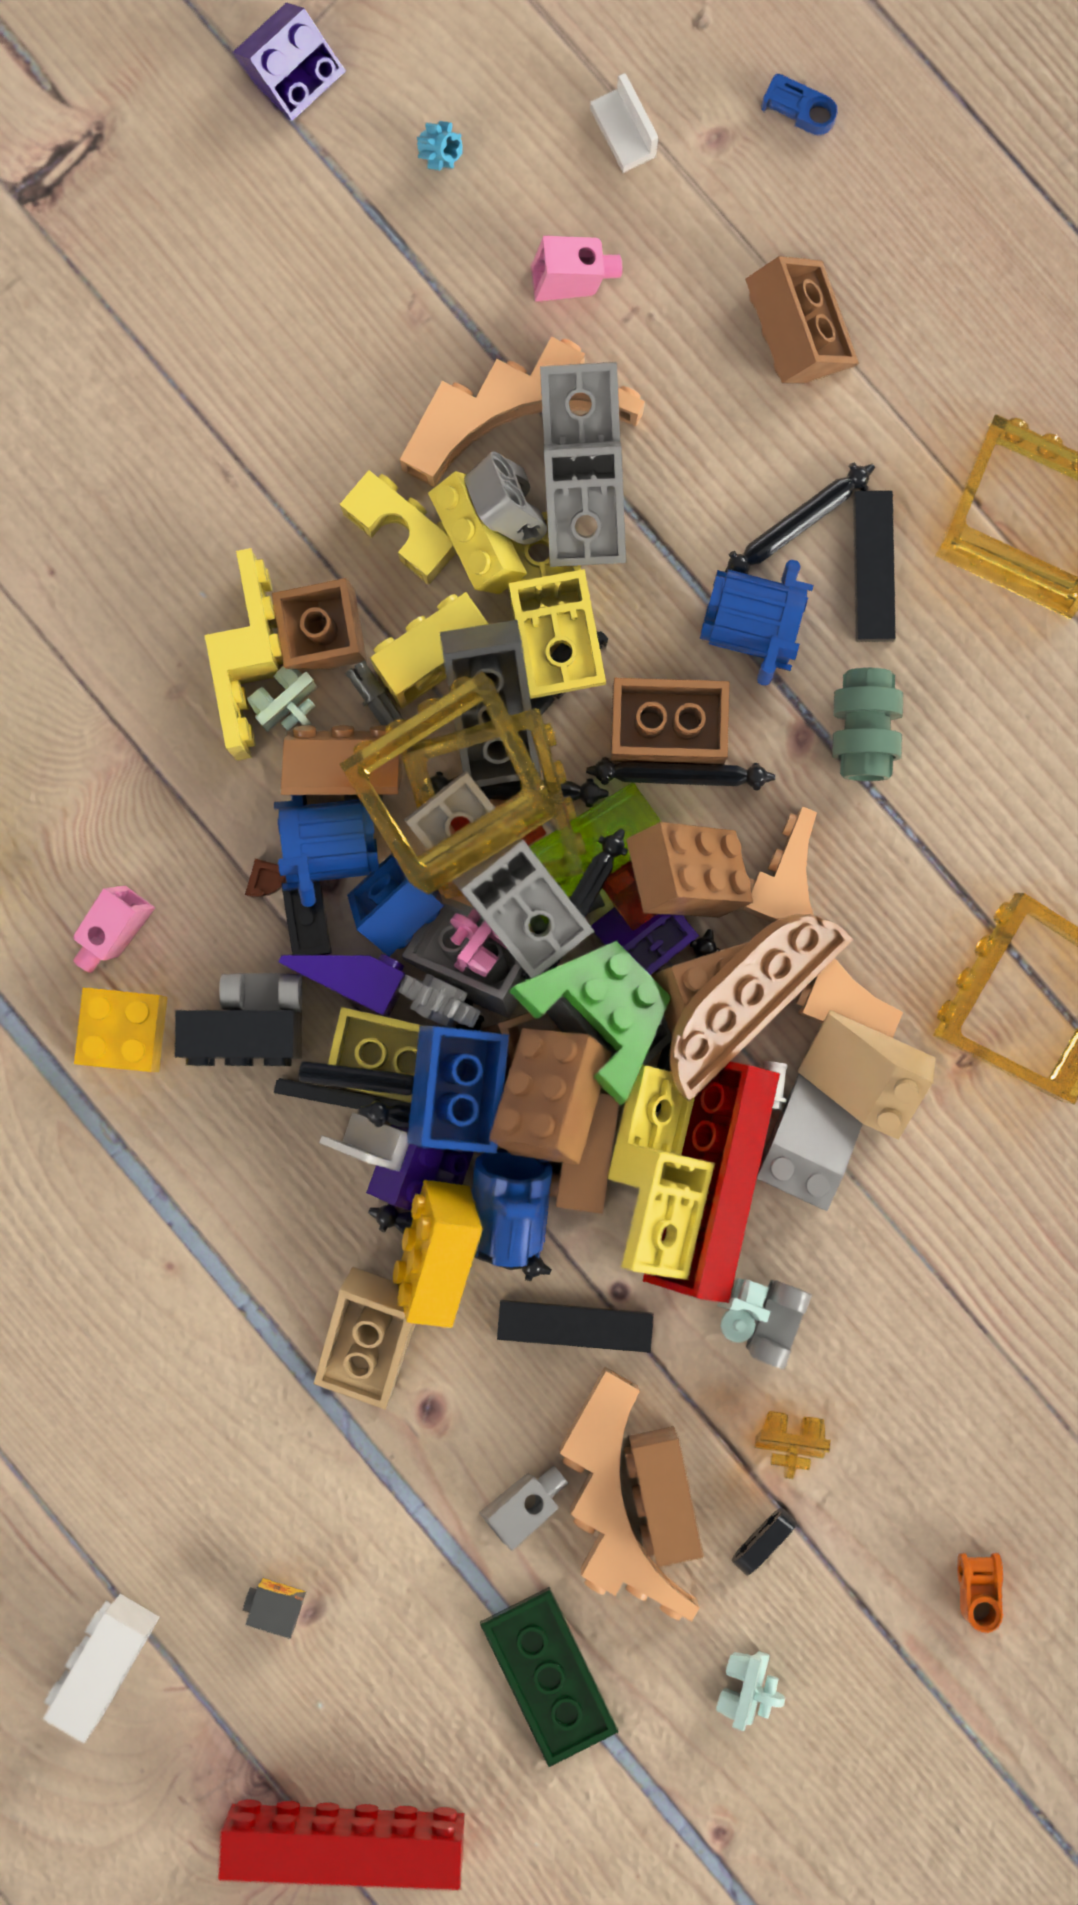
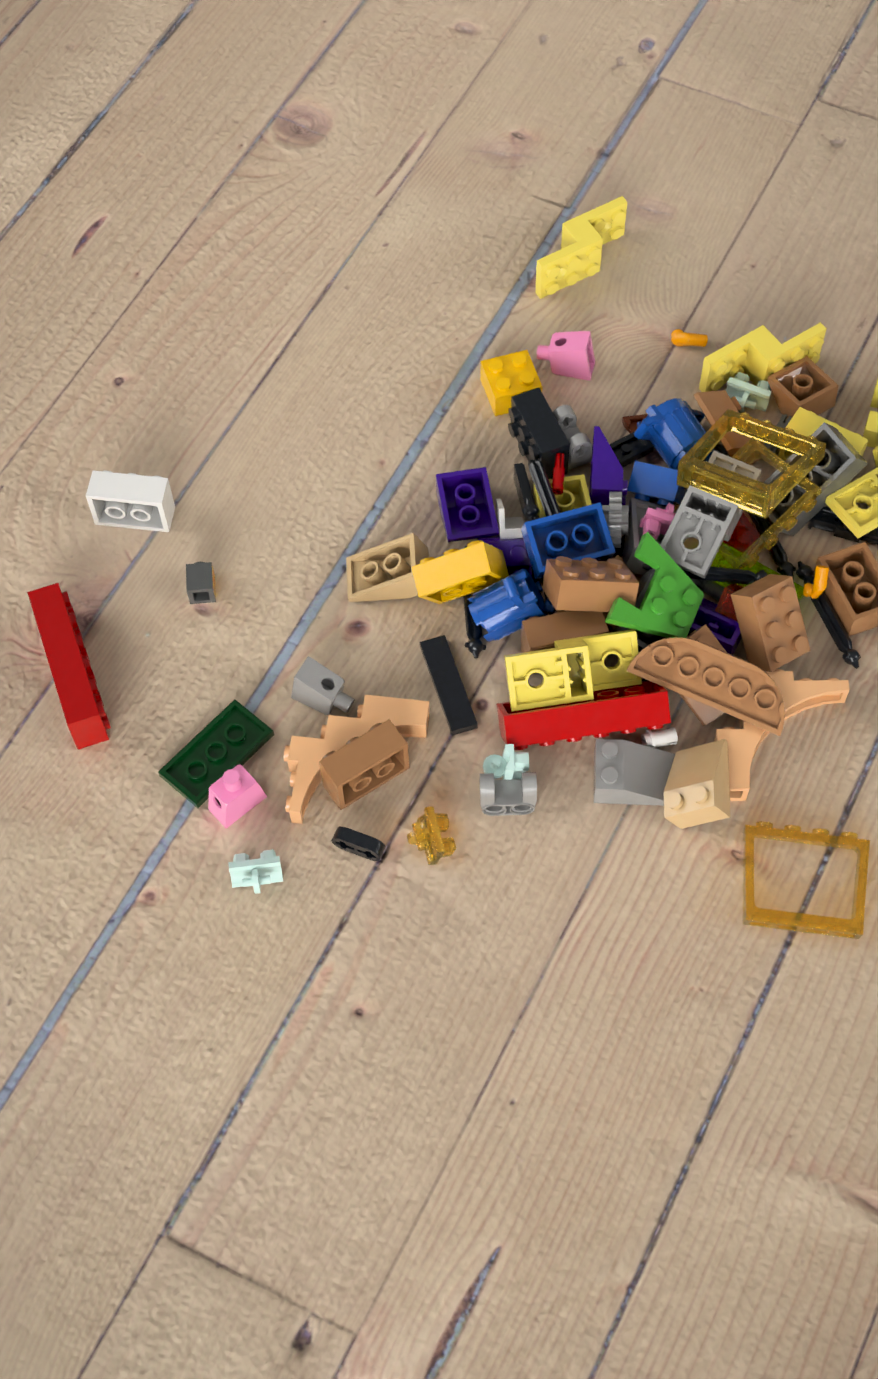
camera: 70 degrees right, 25 degrees down
(152, 735) = (681, 338): none -> light orange arm
(318, 1190) = (466, 504): none -> dark purple slope
(330, 1044) = (558, 474): none -> red piece
(632, 1677) = (234, 795): none -> bright pink torso
(649, 771) = (820, 582): none -> light orange arm
(981, 1582) = (388, 990): orange piece -> none

